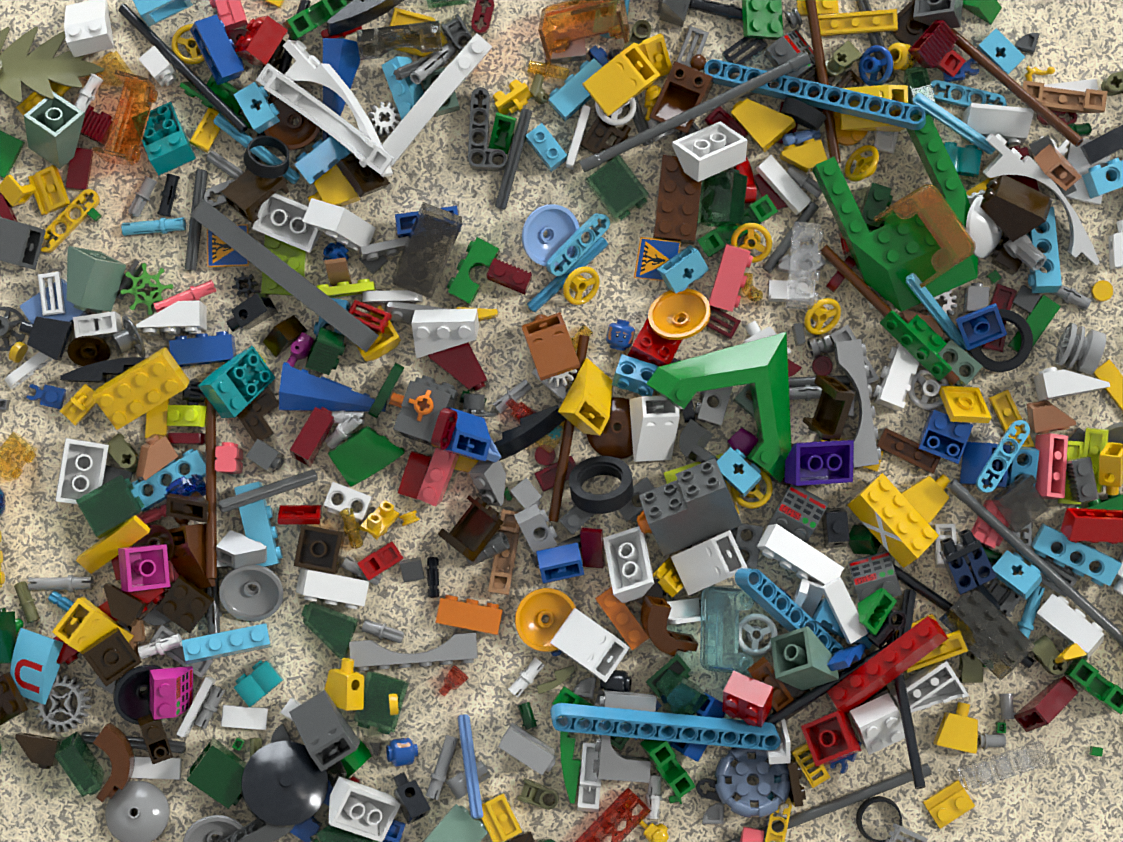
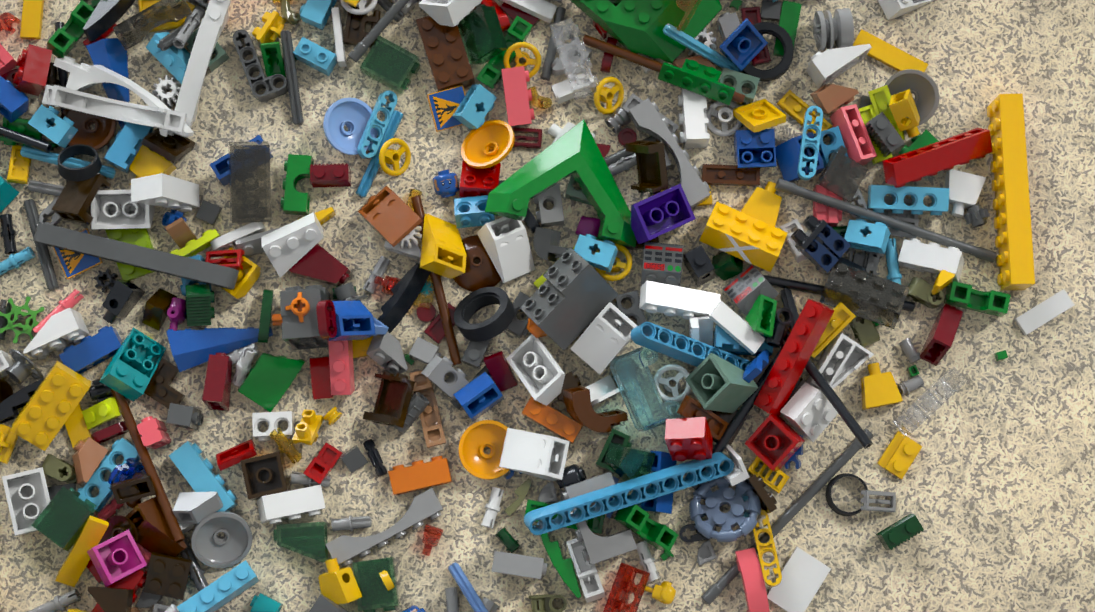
camera: 25 degrees left, 5 degrees down
(267, 491) = (197, 446): dark grey axle -> none
(390, 247) = (207, 201): light grey plate -> none
(669, 577) = (576, 367): yellow plate -> none
(798, 334) = (595, 118): dark grey tile -> none

